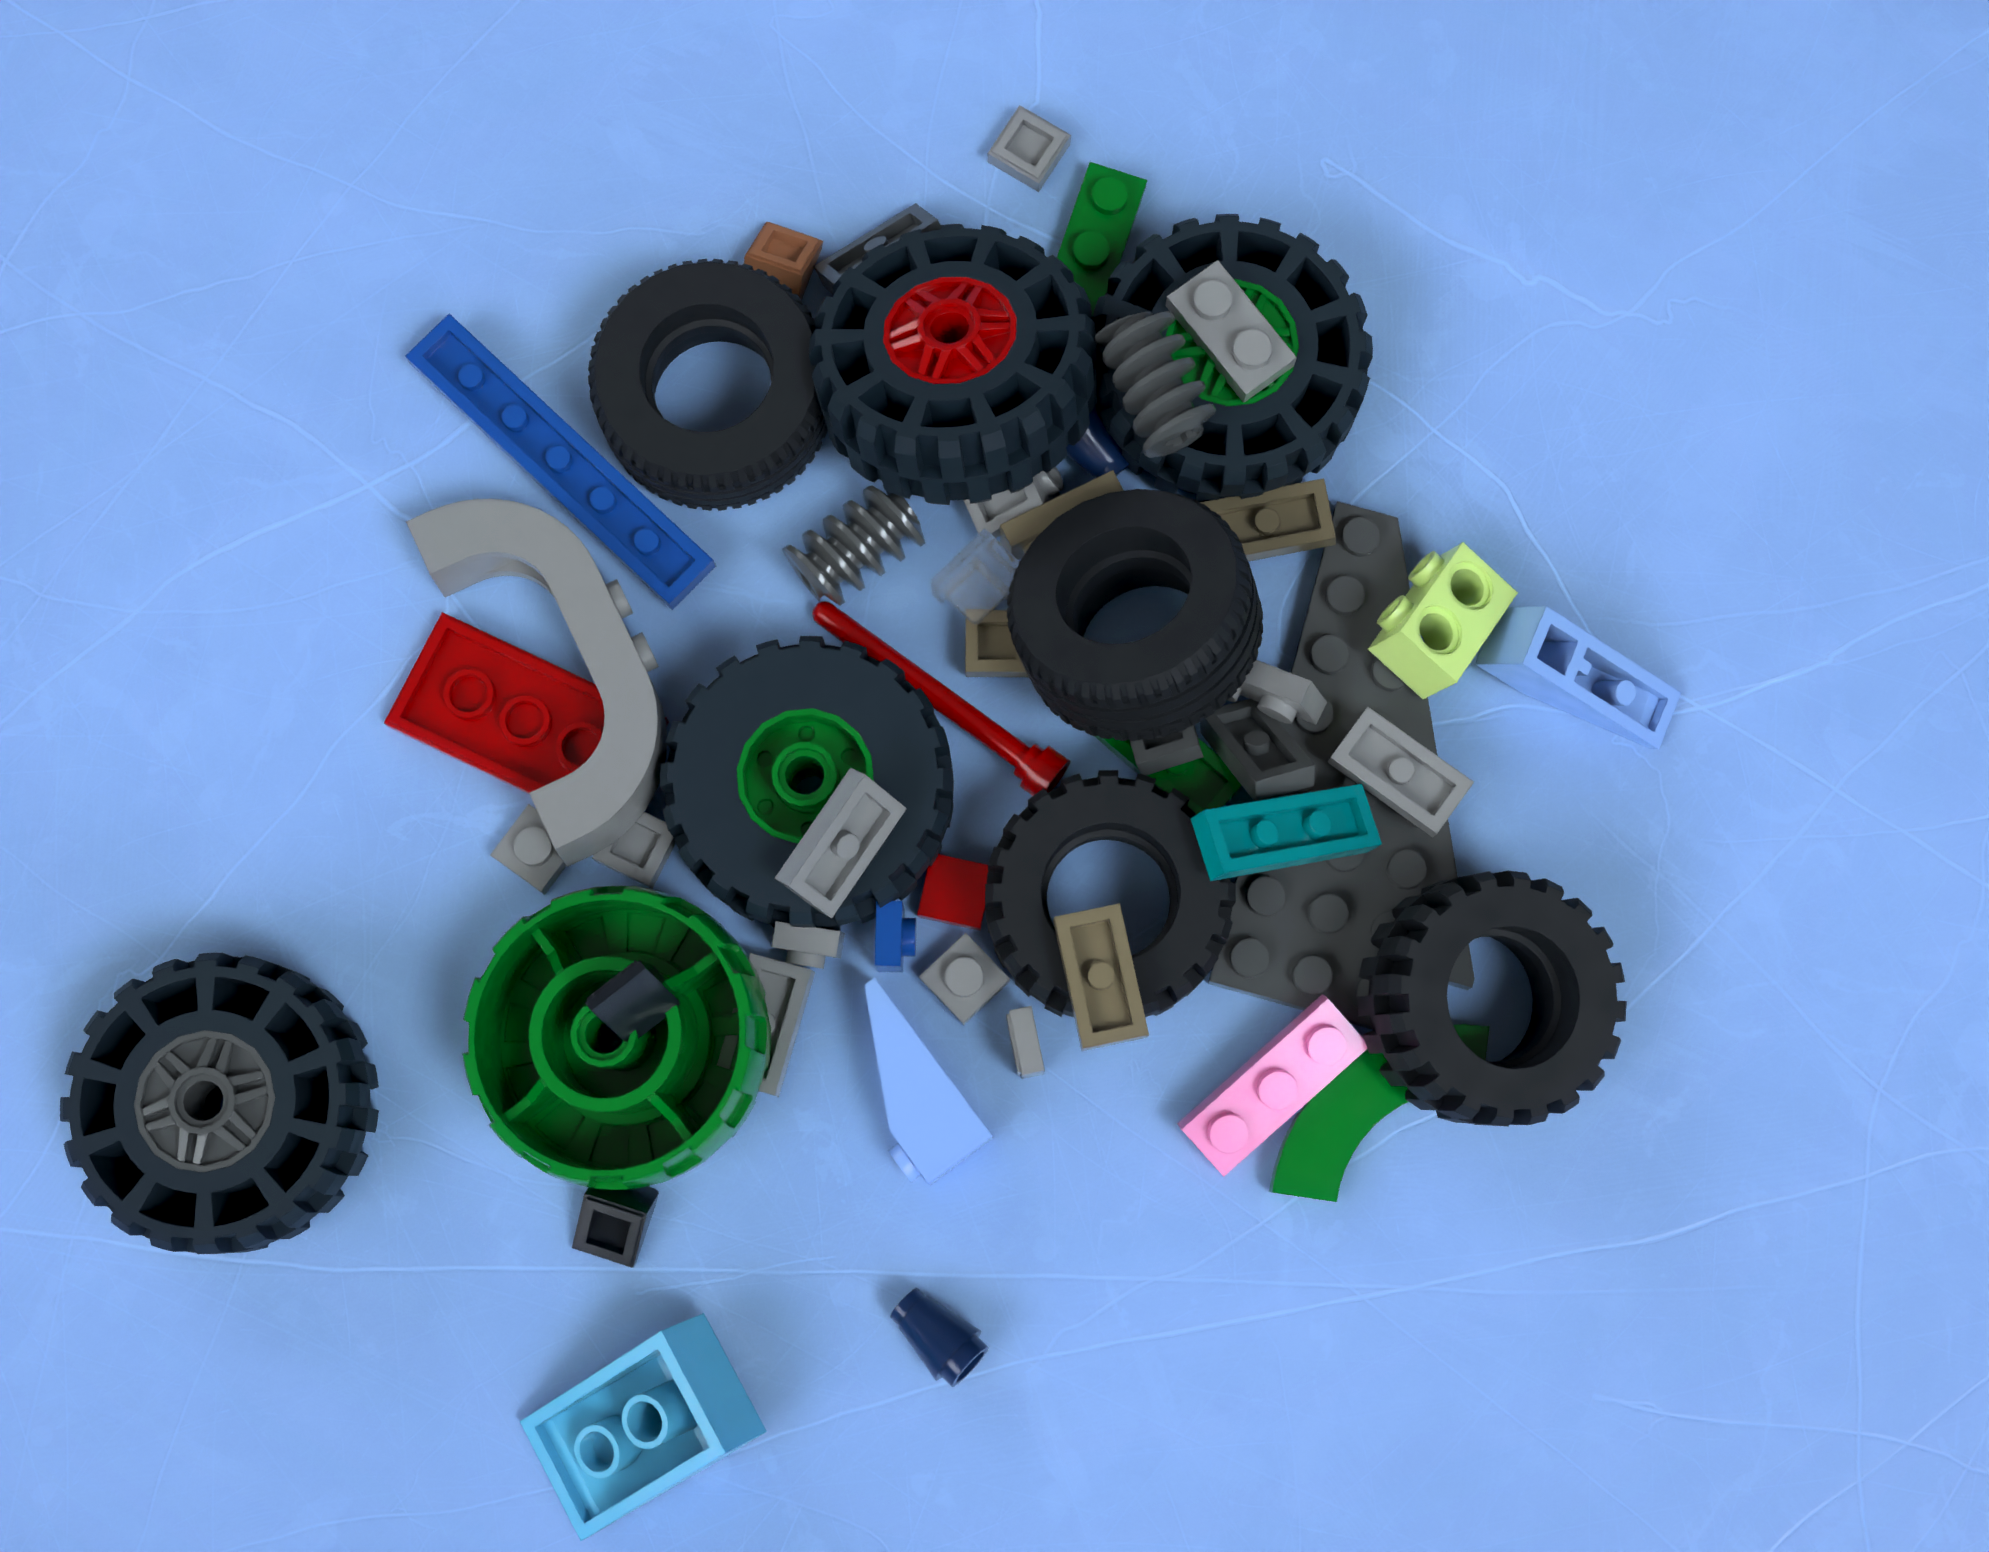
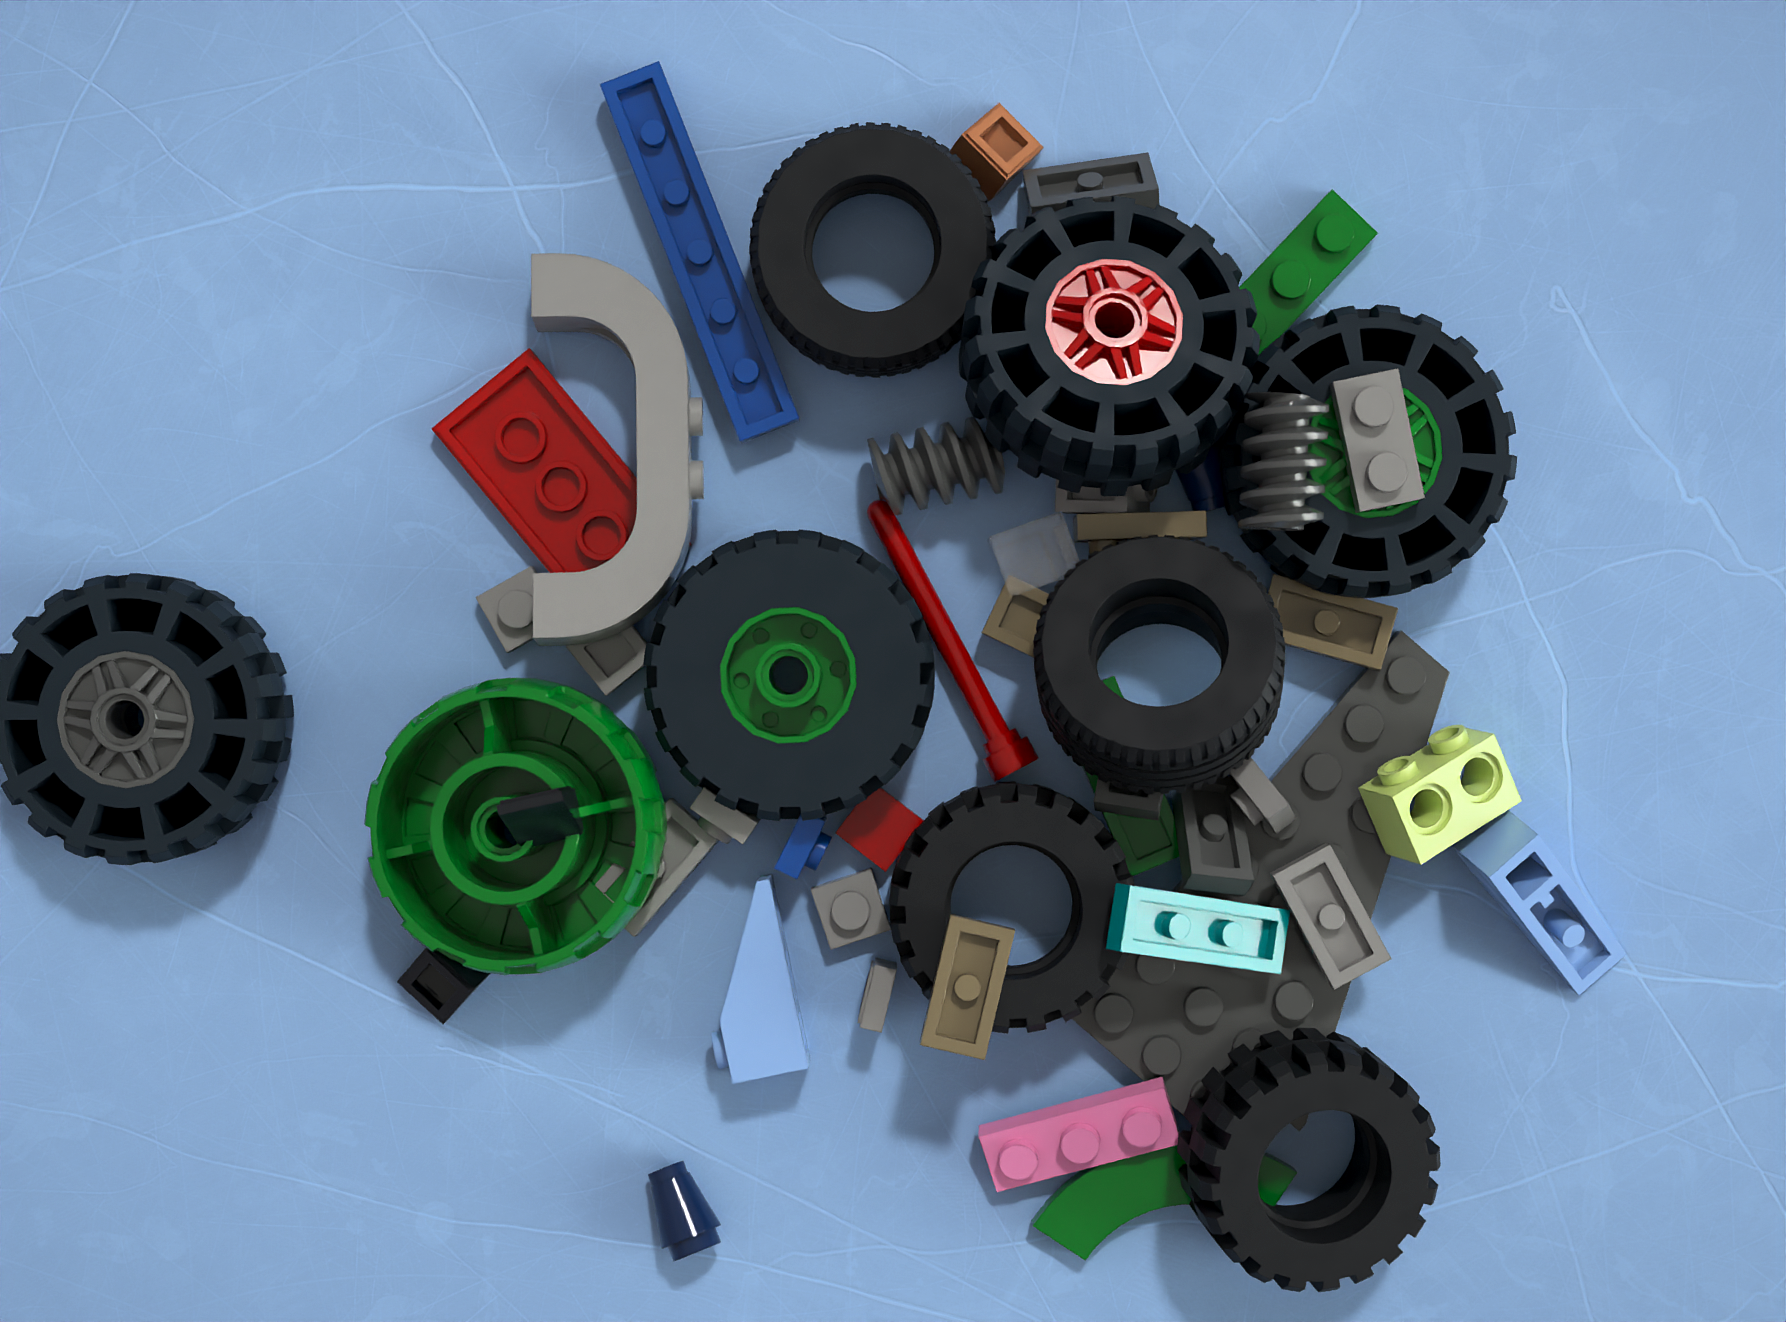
camera: 25 degrees right, 10 degrees up
(642, 1425) = (392, 1169): medium azure slope -> none
(841, 842) = (790, 759): light grey plate -> none
(1029, 148) = (1281, 146): light grey tile -> none

